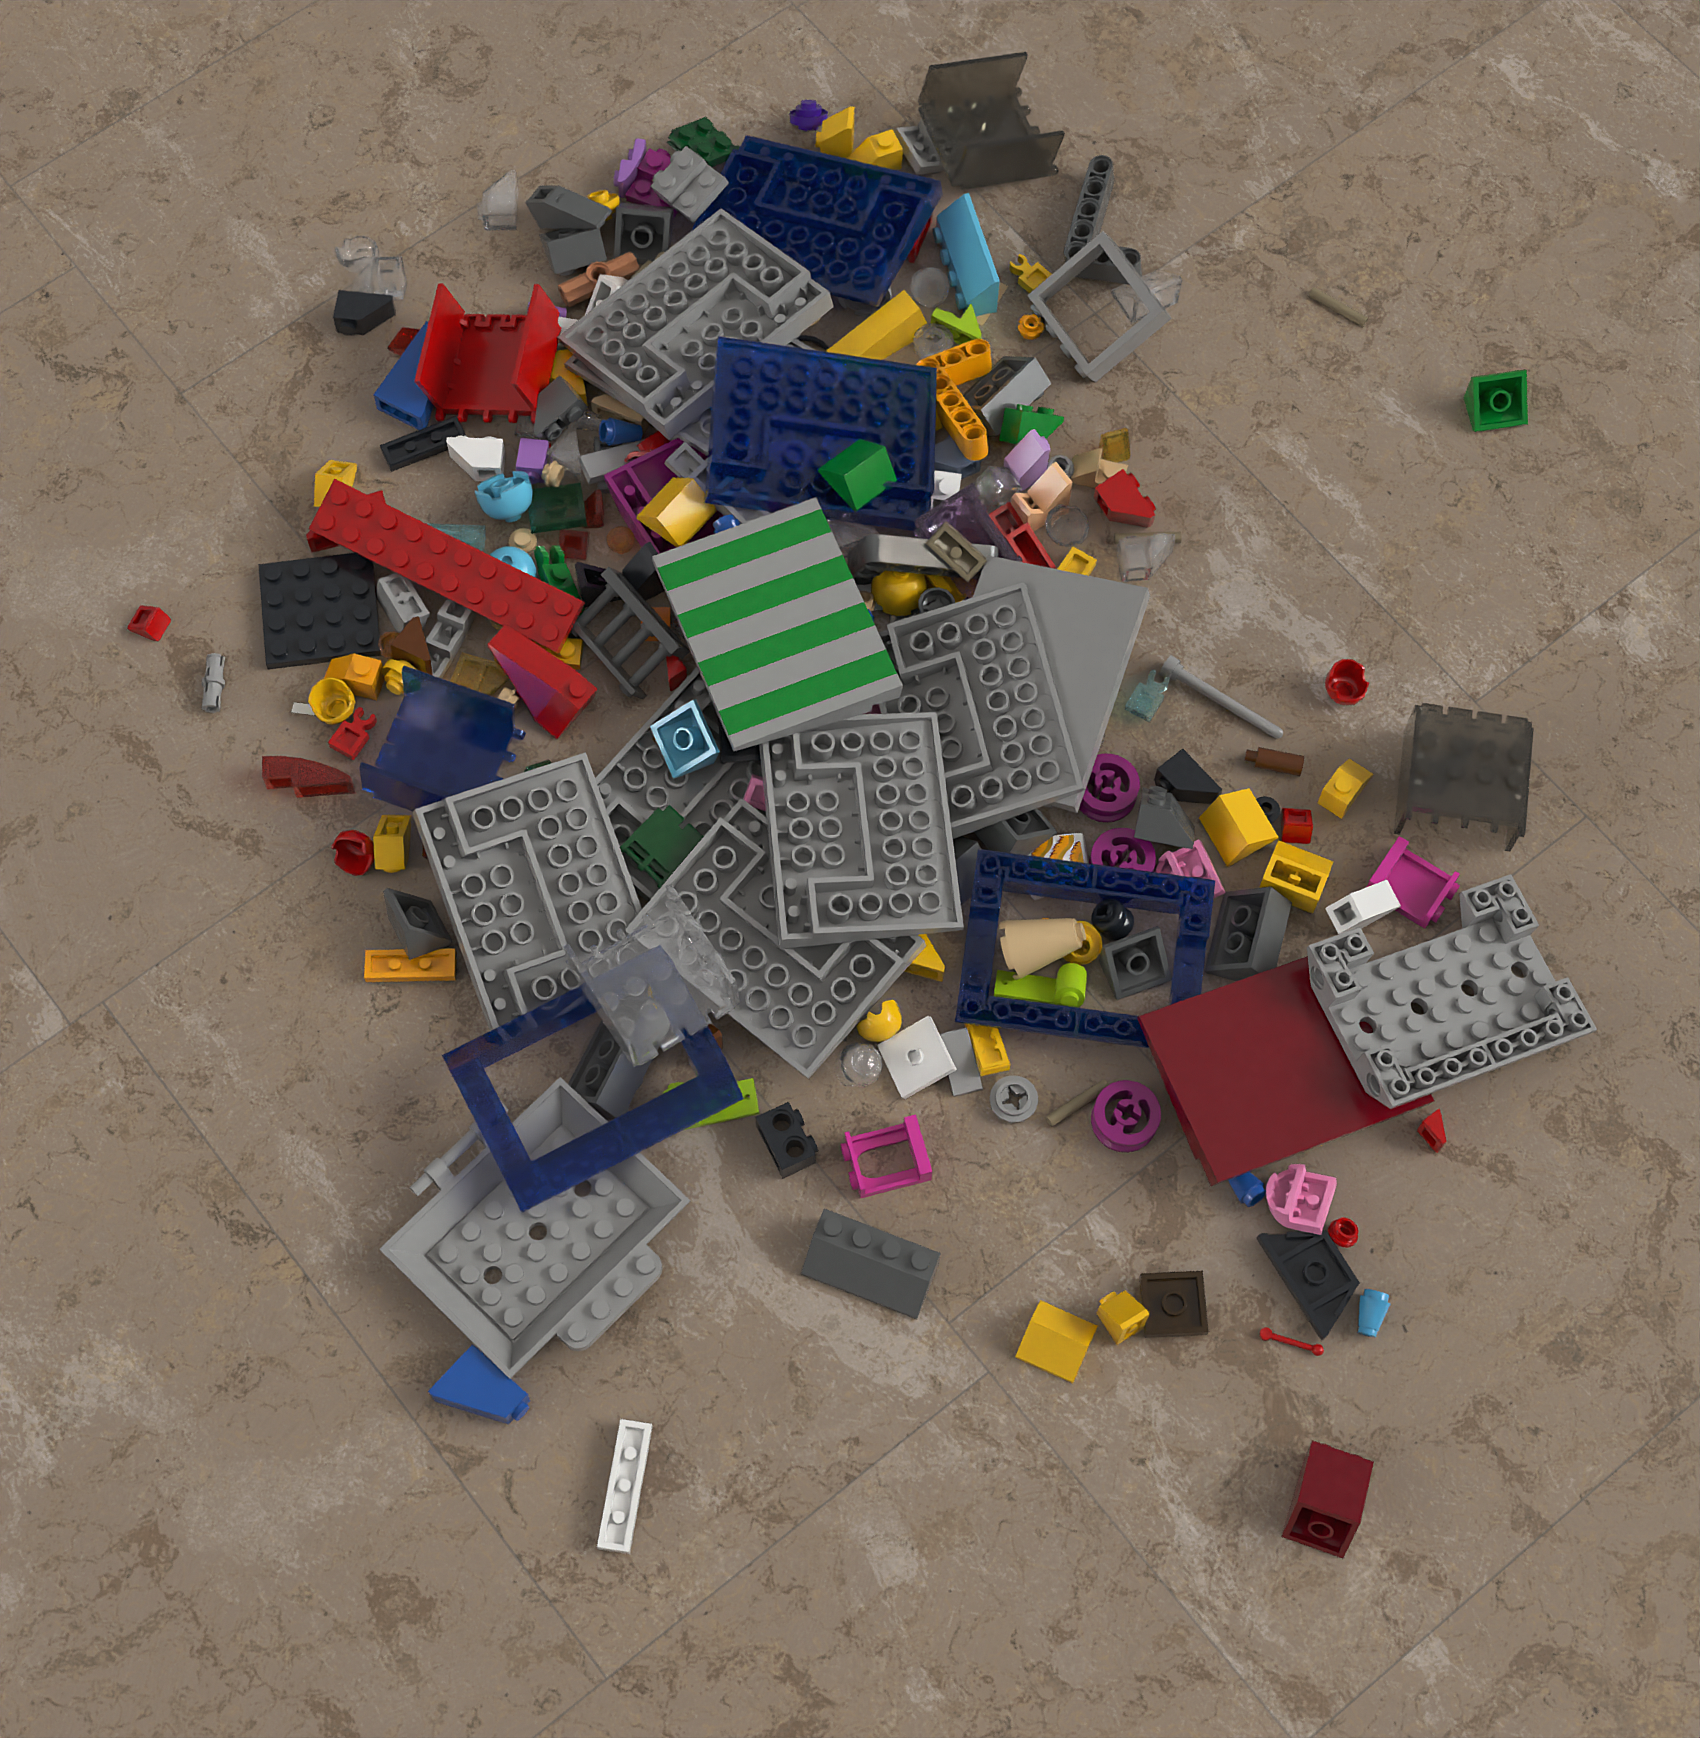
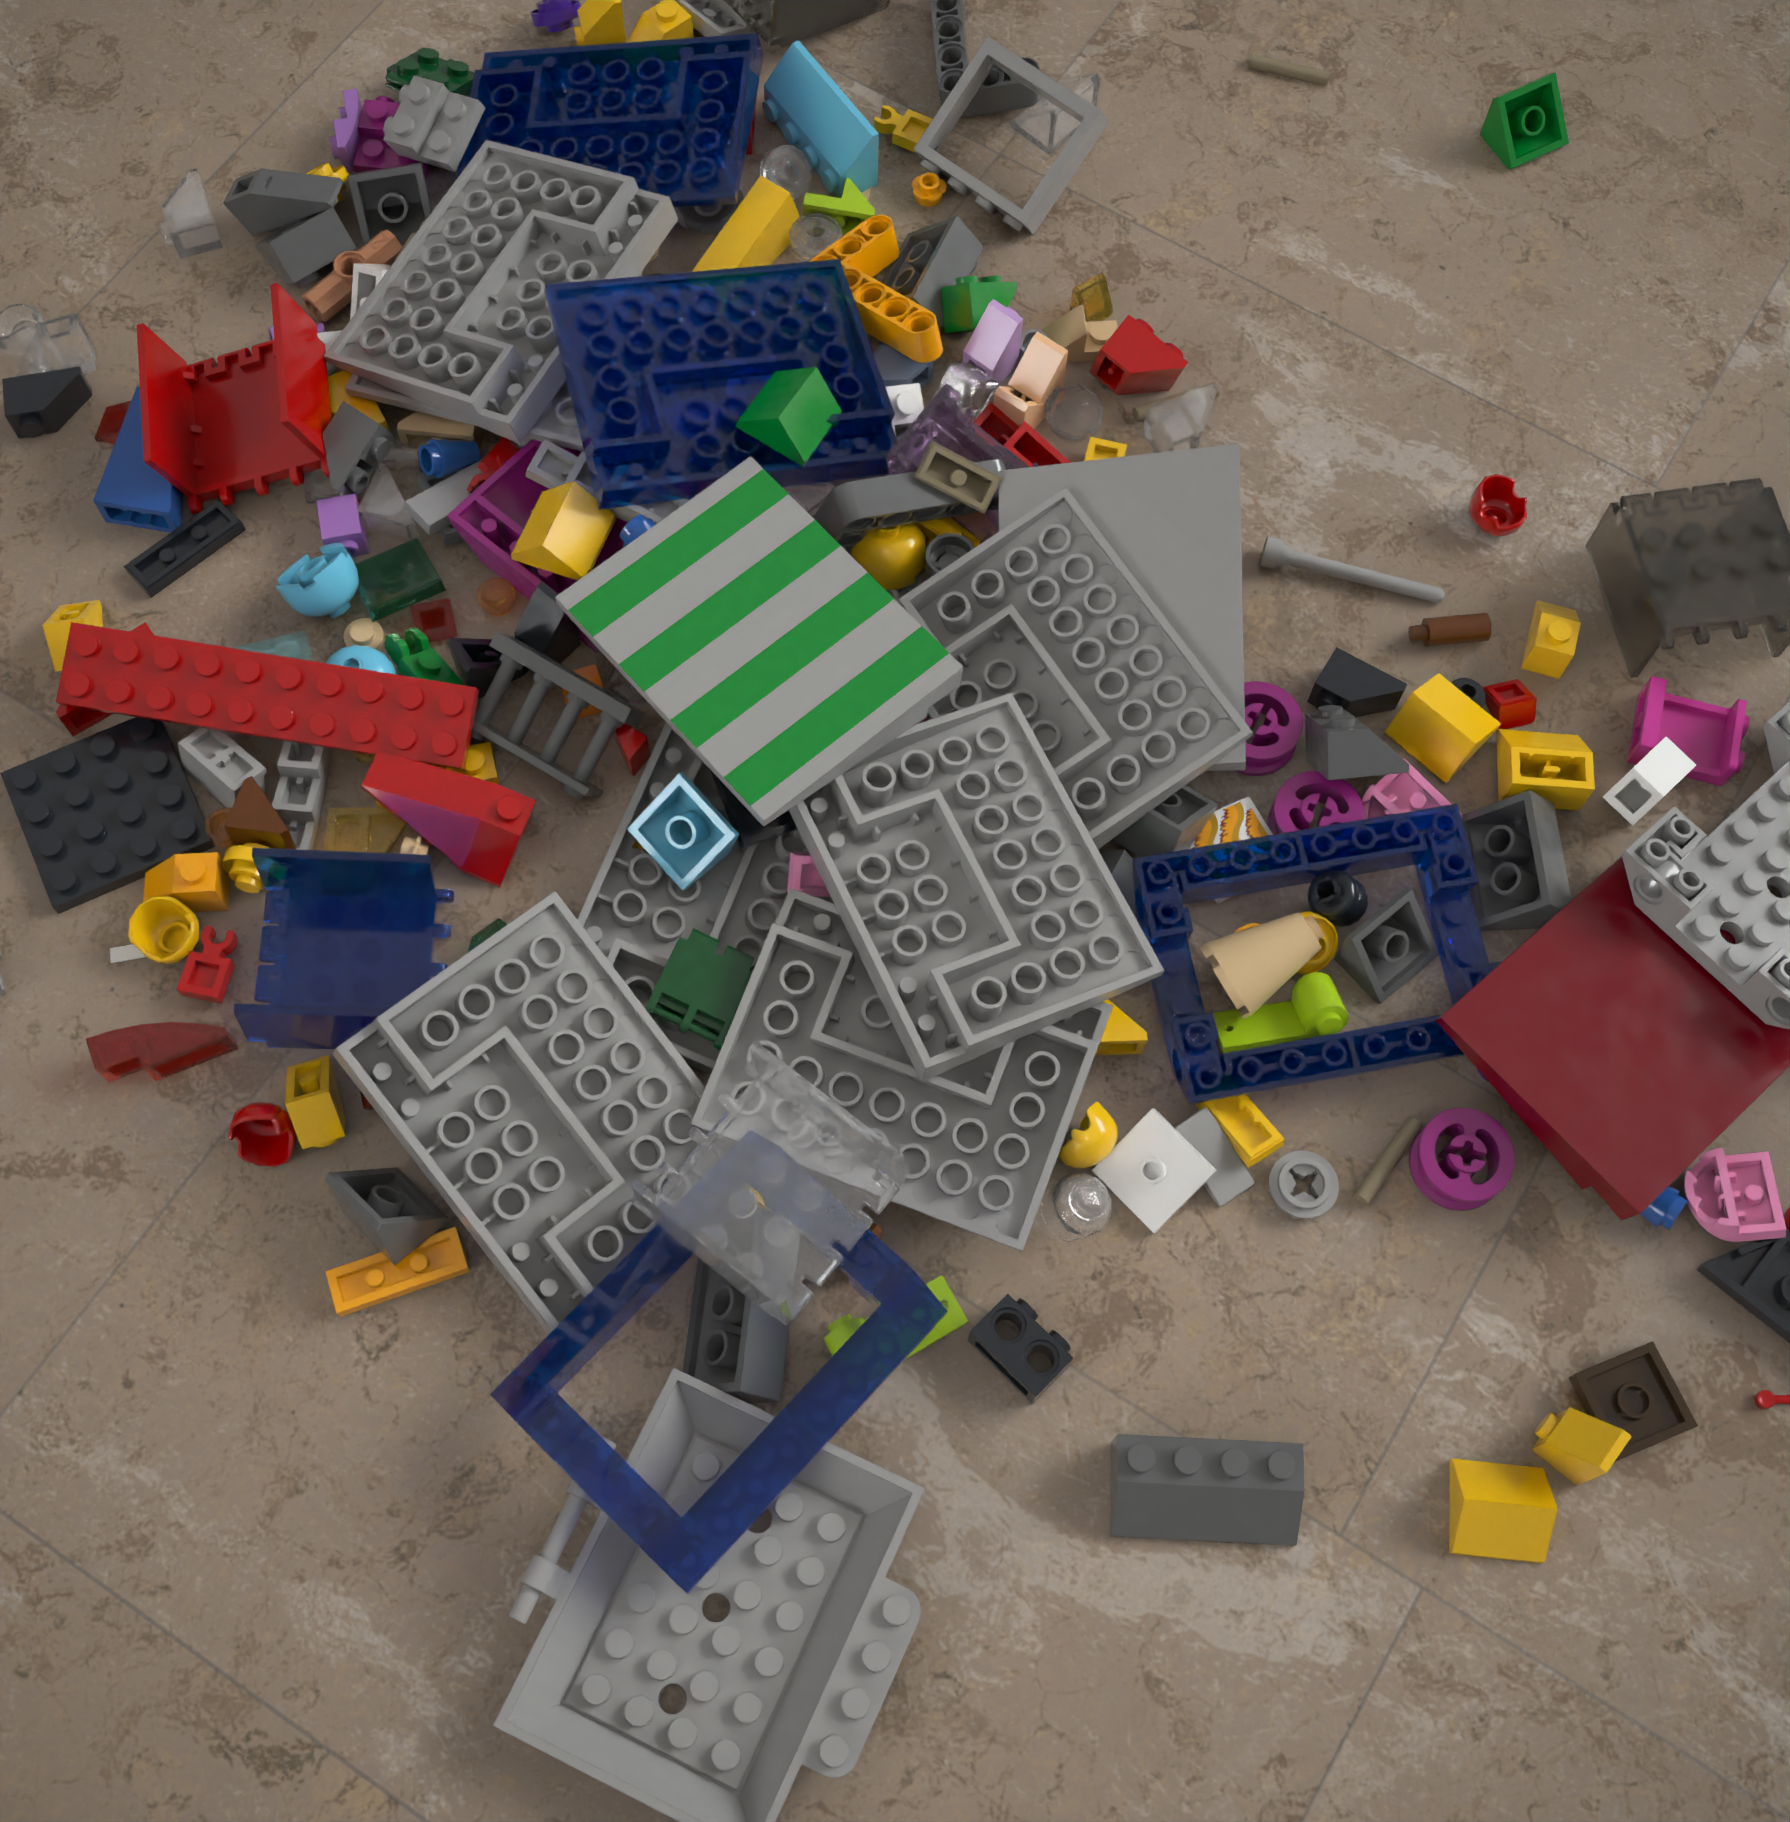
camera: 20 degrees left, 0 degrees up
(478, 456) = (264, 542): white slope -> none
(553, 474) = (376, 536): tan plate -> none
(594, 510) = (448, 567): clear red slope -> none
(858, 1144) = (1204, 1298): dark pink panel -> none
(1147, 699) = (1260, 597): clear light blue plate -> none

